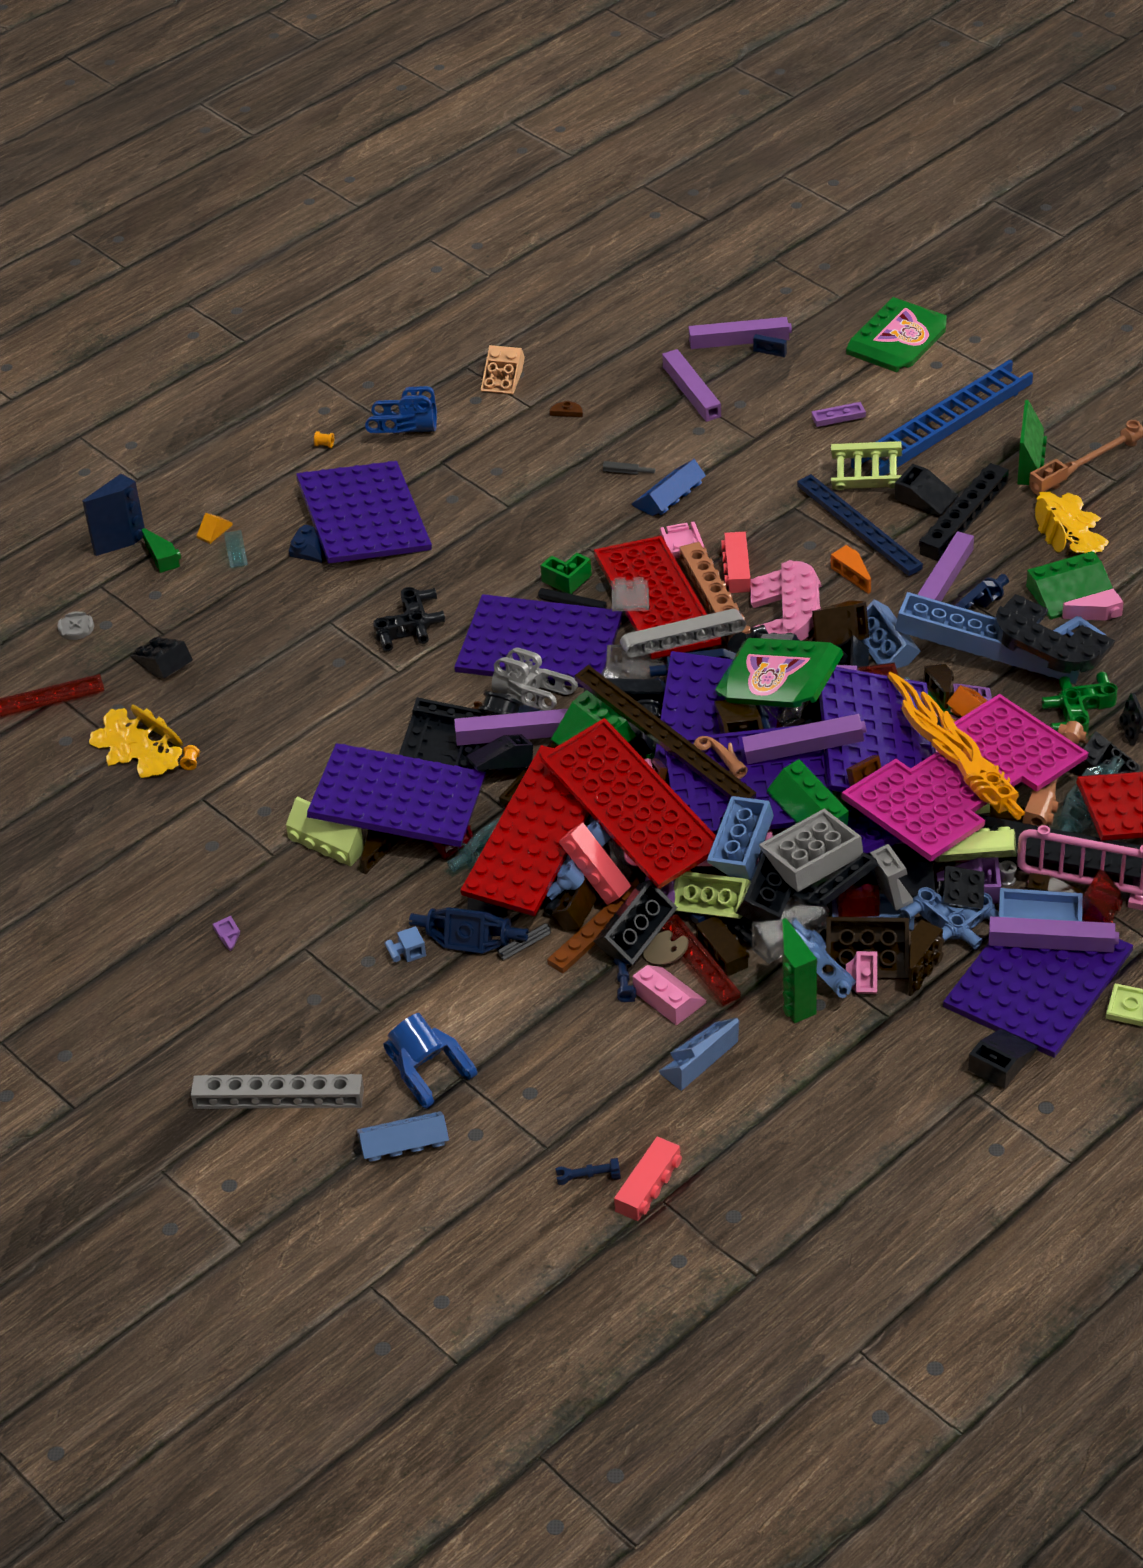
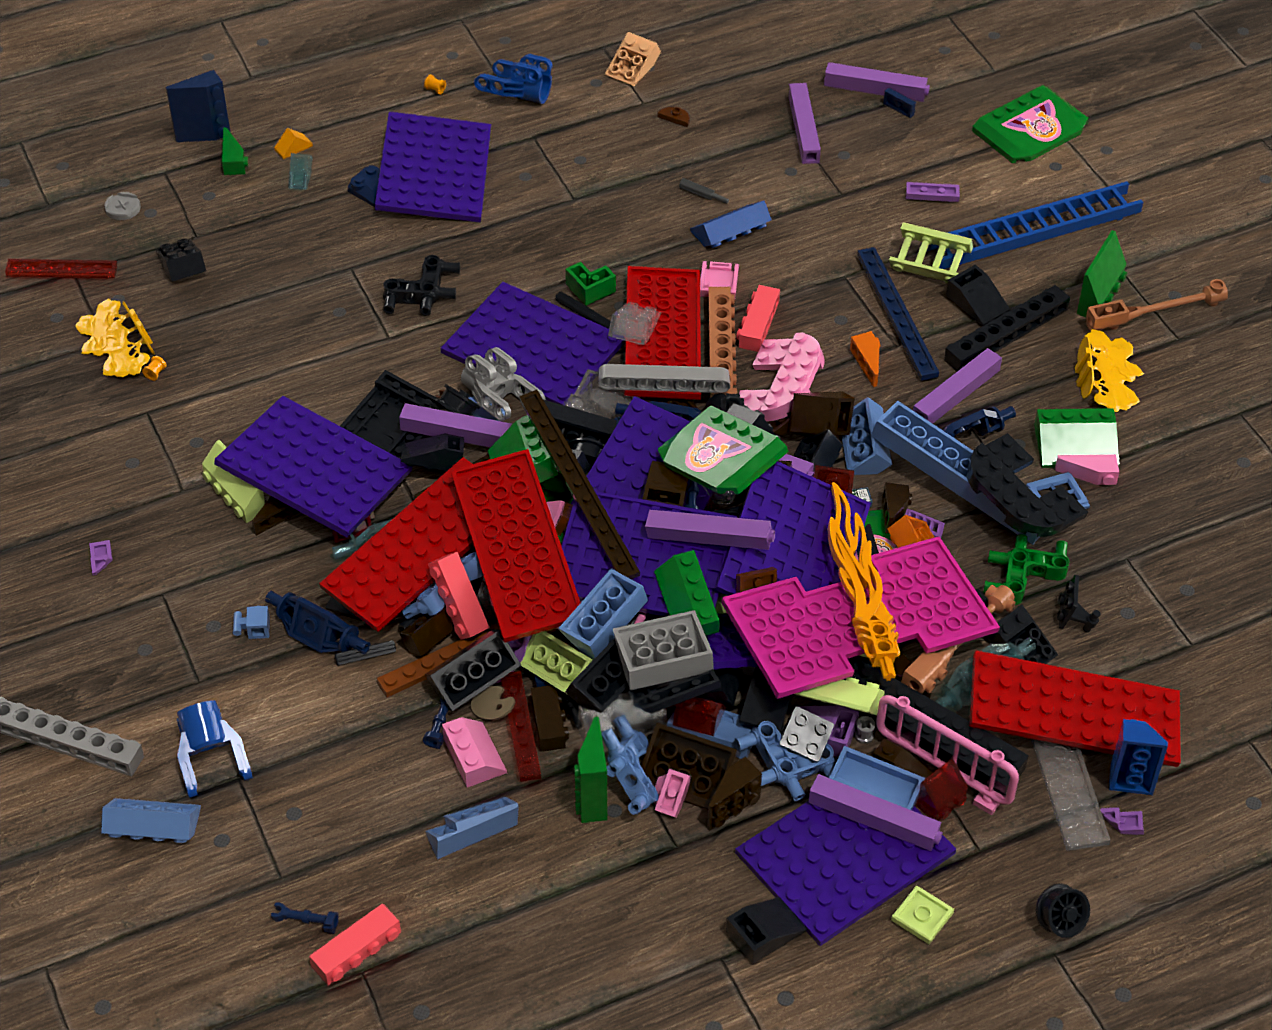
camera: 15 degrees right, 5 degrees up
(728, 756) = (633, 537): nougat plant -> none
(887, 875) = (734, 702): light grey panel -> none

